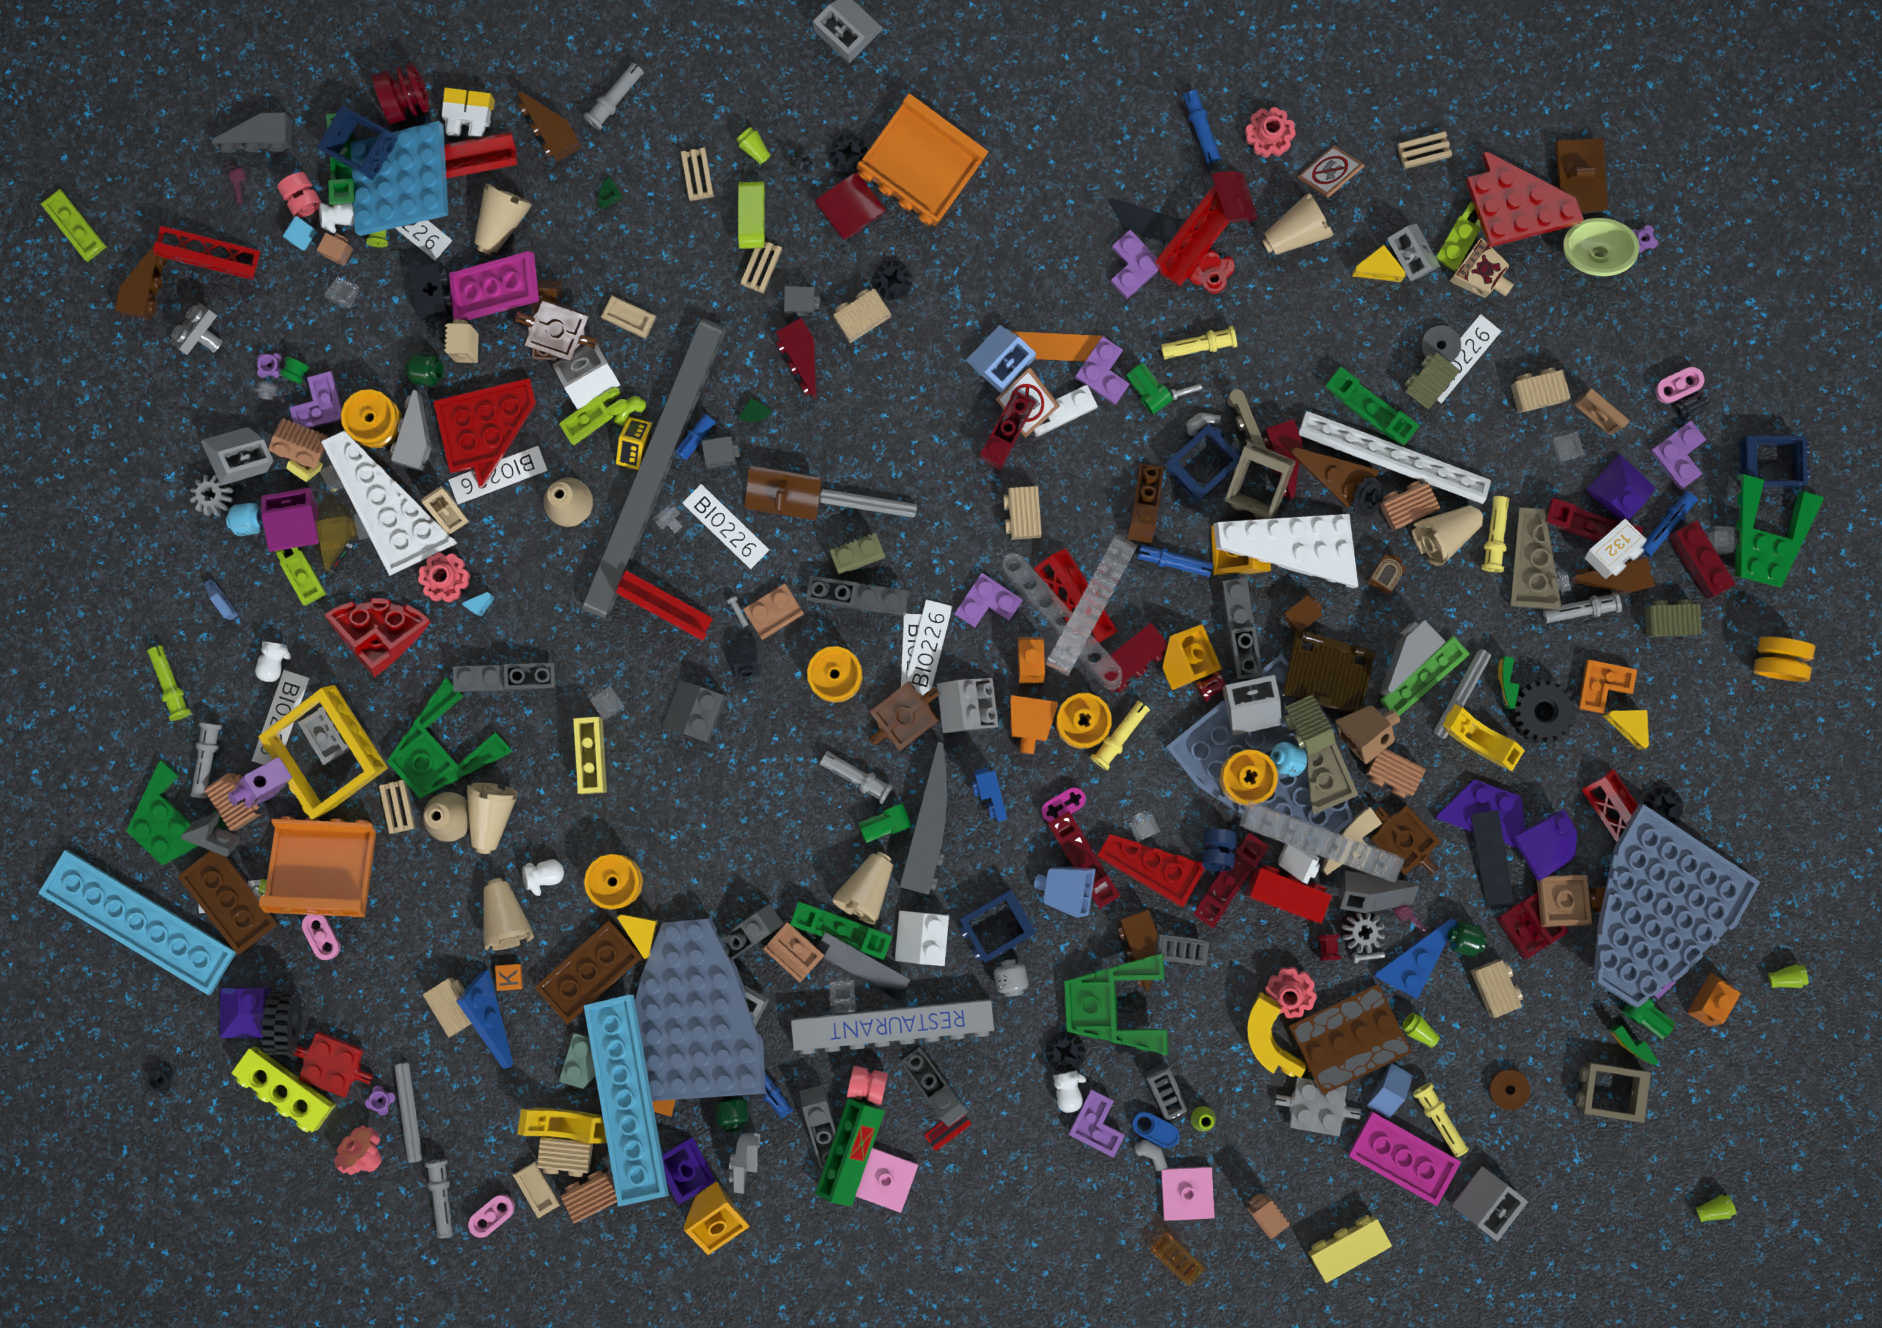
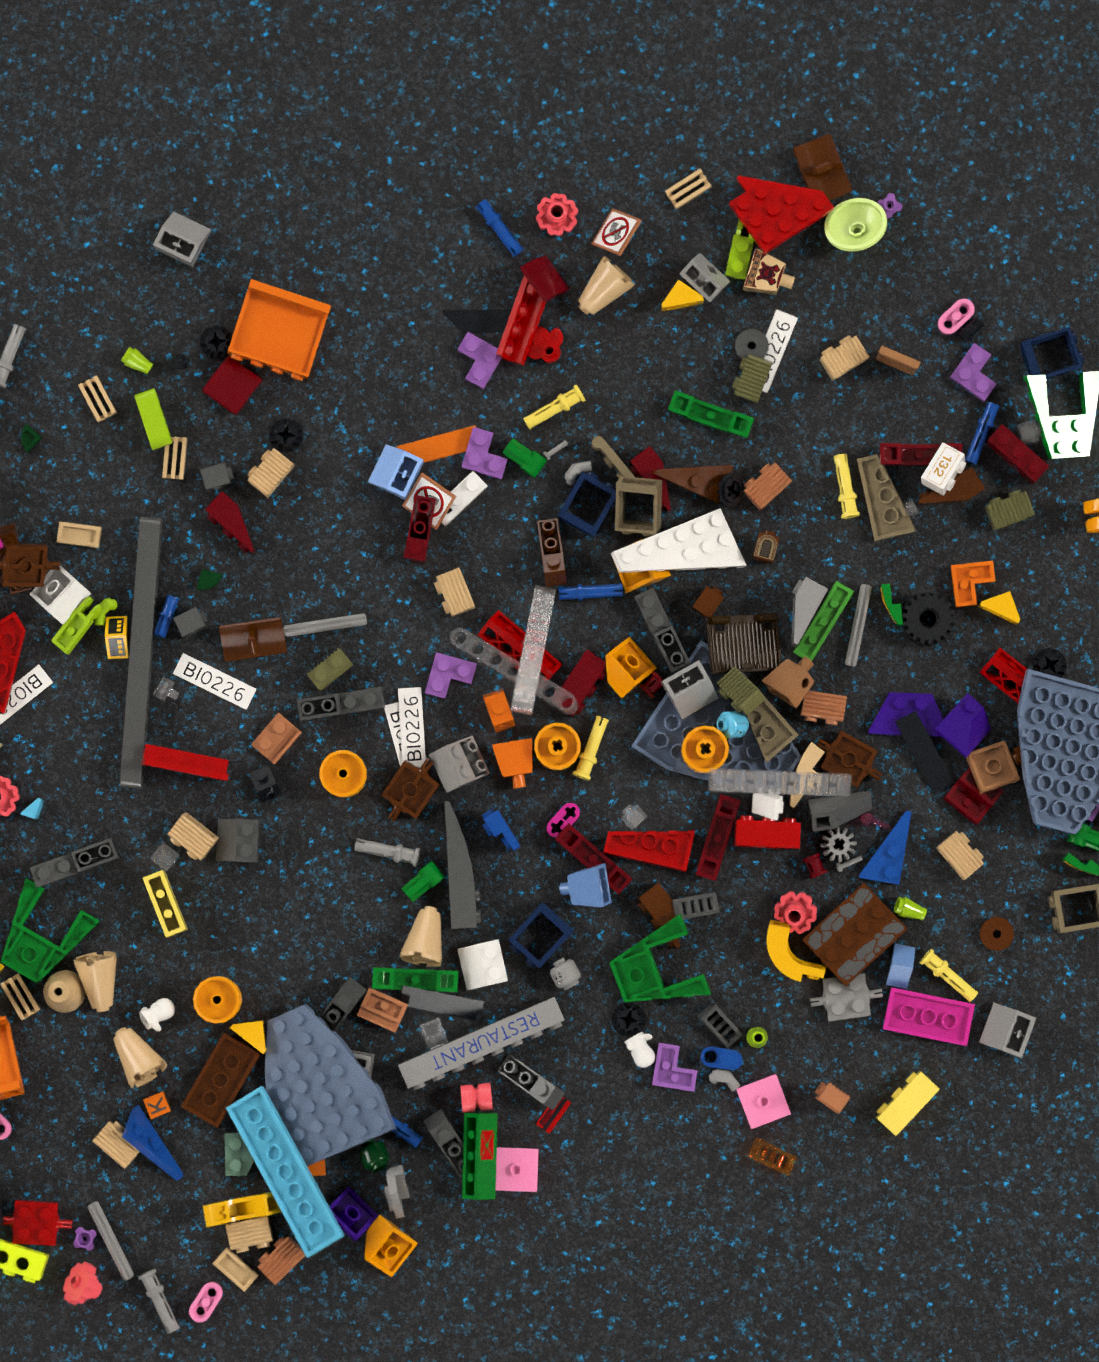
camera: 20 degrees left, 0 degrees up
(568, 502) = (86, 705): tan cone -> none
(645, 690) = (192, 836): none -> tan brick
(732, 600) = (240, 741): light grey piece -> none
(1219, 850) = (700, 815): dark blue wheel -> none
(1394, 457) = (742, 450): white plate -> none
(1446, 533) = (804, 498): tan cone -> none
(1466, 938) = (923, 823): dark green head -> none
(1482, 739) = (884, 657): yellow arch -> none
(1568, 447) = (881, 396): clear plate -> none
(1594, 606) = (942, 519): light grey pin -> none
(1621, 489) = (935, 416): dark purple slope -> none

